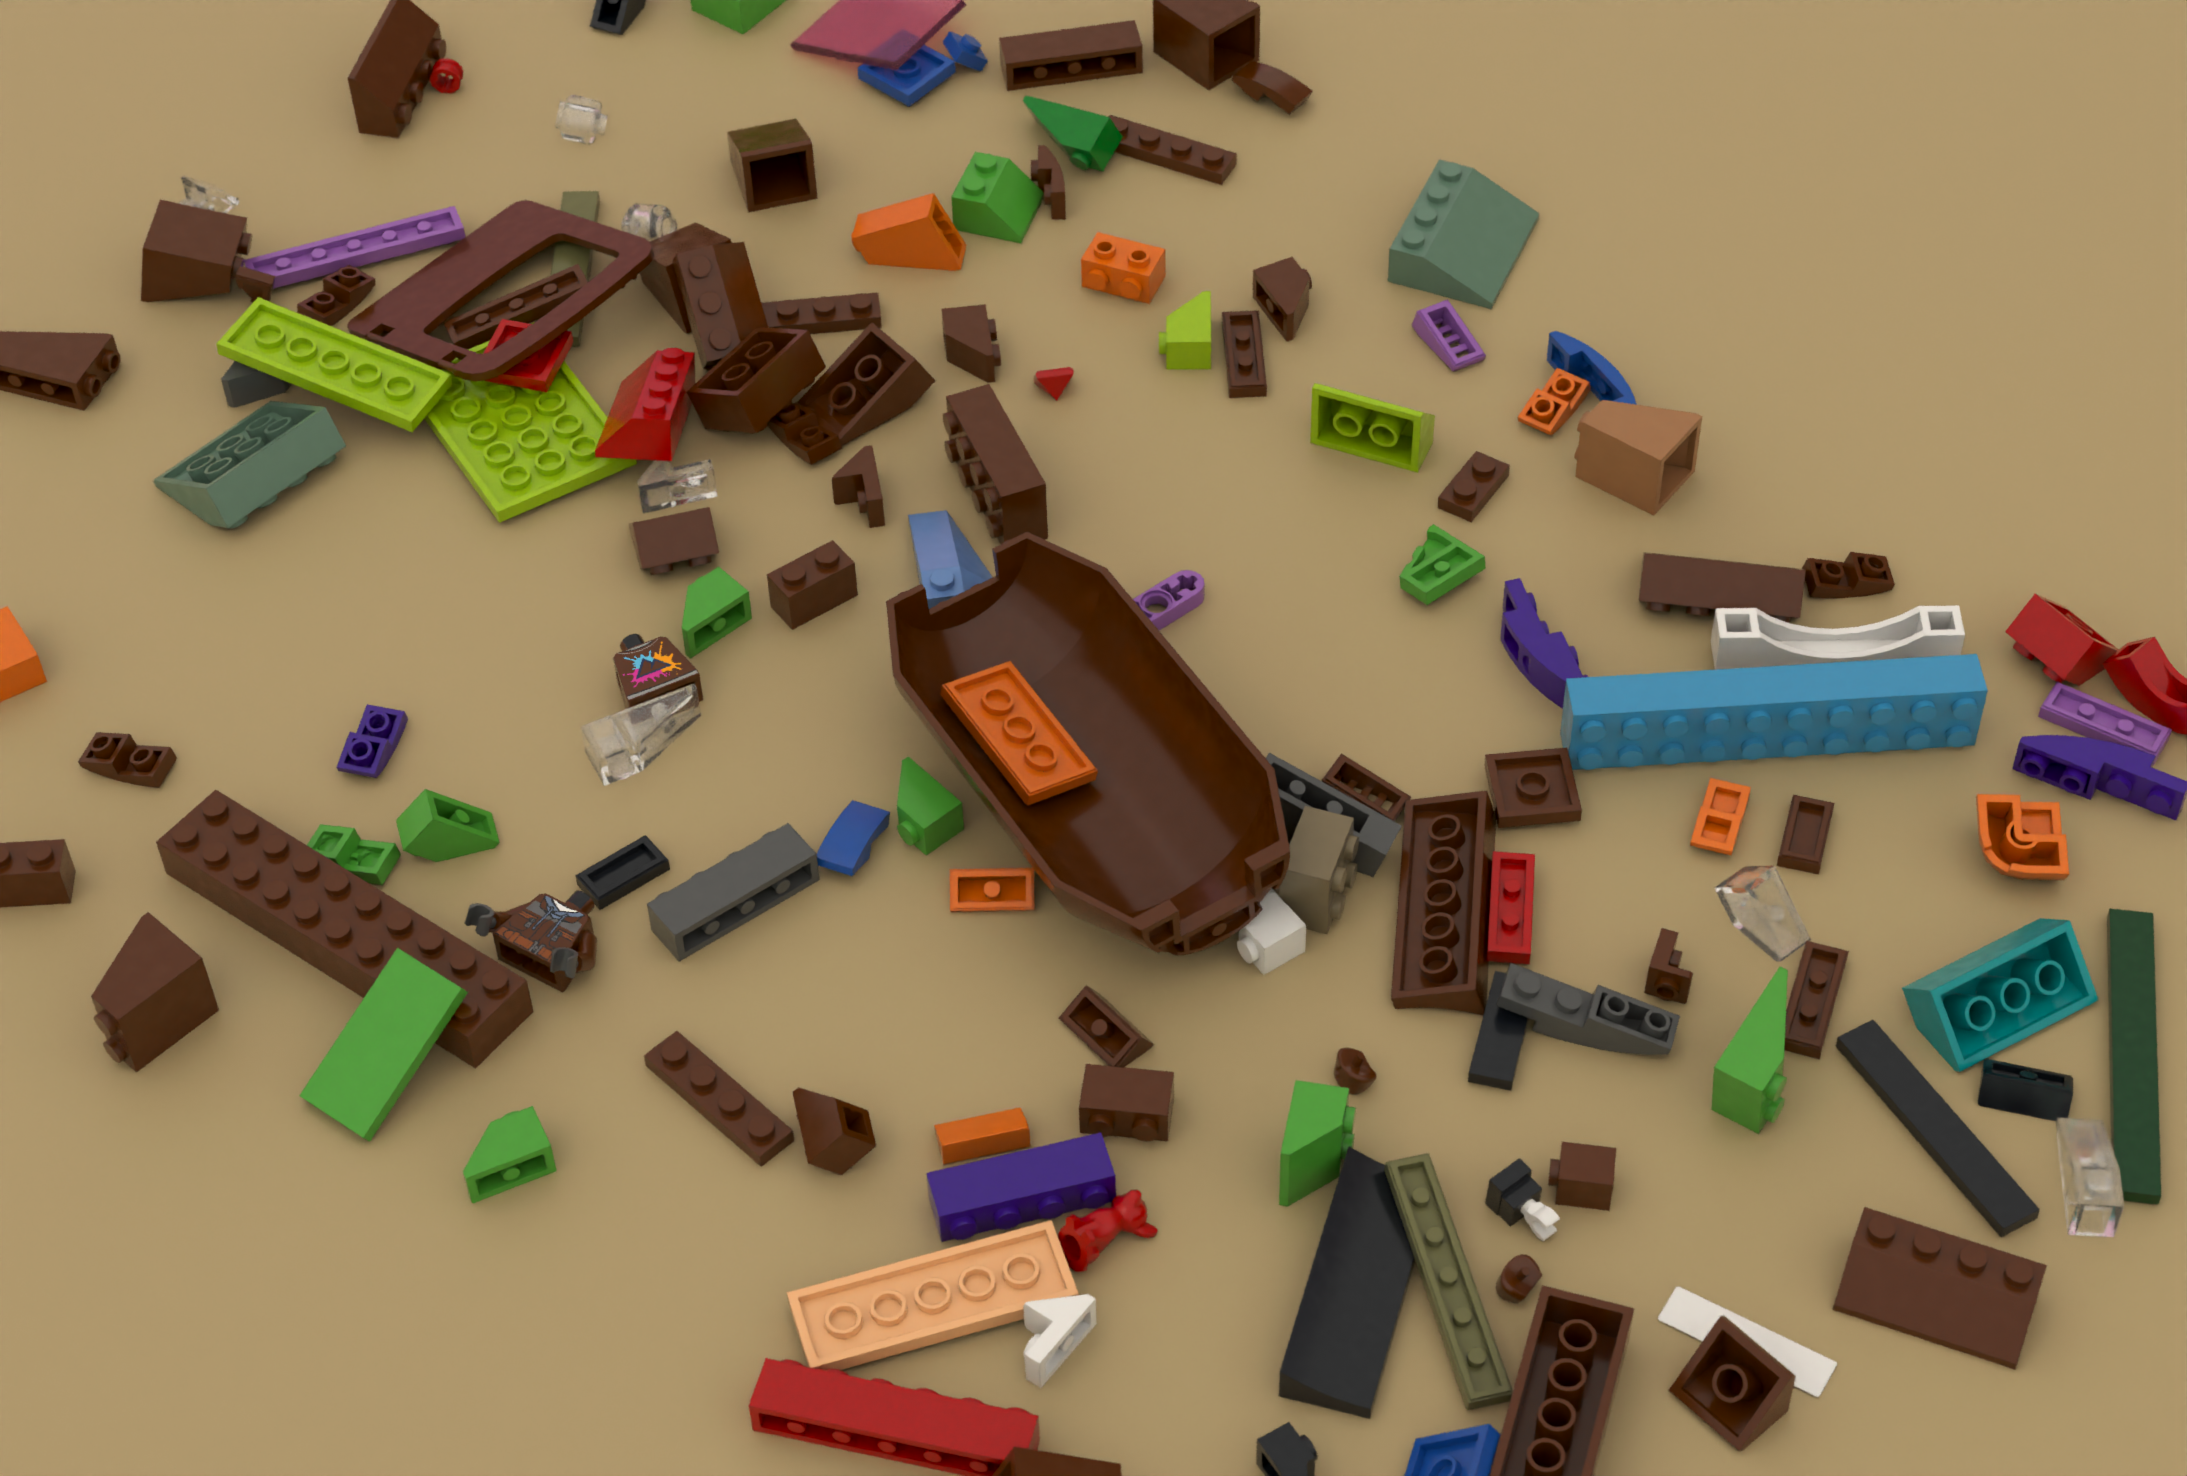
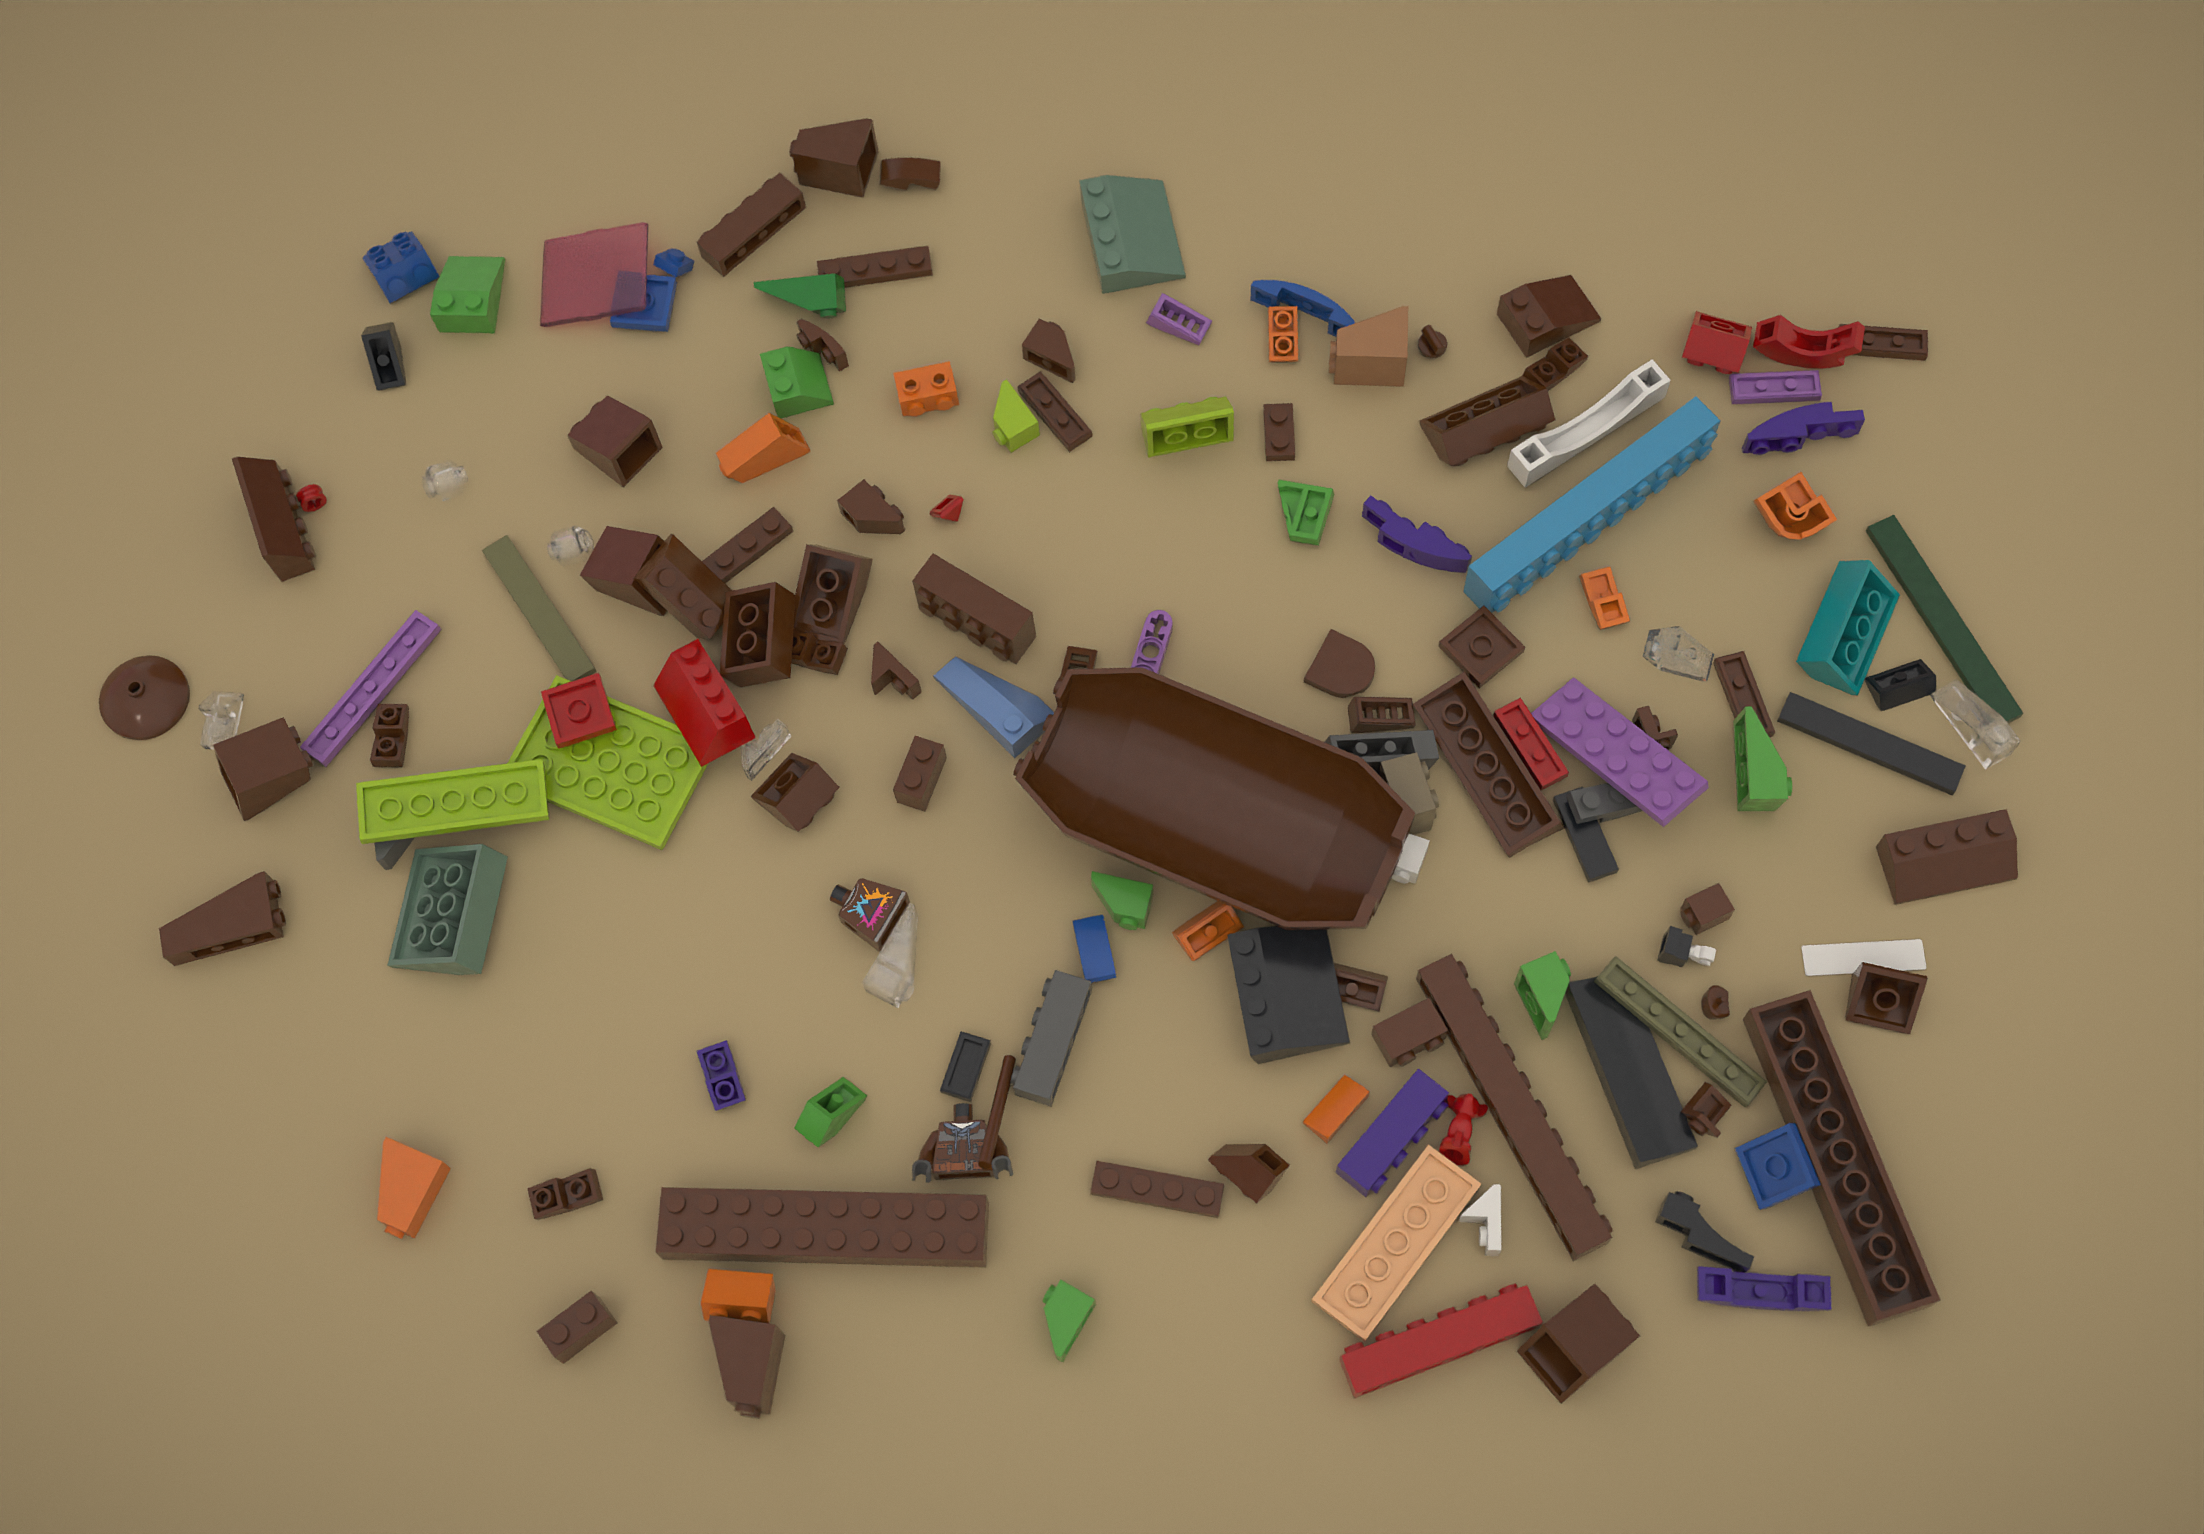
camera: 30 degrees left, 20 degrees up
(149, 159) = (153, 708): none -> reddish brown dish
(207, 931) = (738, 1295): none -> orange brick
(255, 283) = (331, 763): reddish brown tile -> none
(363, 858) = (778, 1168): bright green slope -> none
(383, 1044) = (930, 1298): bright green tile -> none
(479, 261) = (469, 658): reddish brown door -> none
(521, 306) = (536, 671): reddish brown plate -> none
(601, 921) = (996, 1112): none -> reddish brown bar
(713, 610) = (867, 832): bright green slope -> none
(1018, 733) = (1146, 808): orange tile -> none
(1020, 982) = (1287, 992): none -> black slope
(1182, 1248) = (1514, 1108): none -> reddish brown brick
(1353, 1070) = (1521, 920): reddish brown piece -> none
(1356, 726) = (1341, 666): none -> reddish brown tile
(1410, 1375) = (1706, 1110): none -> reddish brown bracket
(1603, 957) = (1619, 752): none -> medium lavender plate
(1719, 487) = (1432, 343): none -> reddish brown plate
(1805, 834) = (1660, 578): reddish brown tile -> none
(1877, 518) = (1545, 313): none -> reddish brown slope

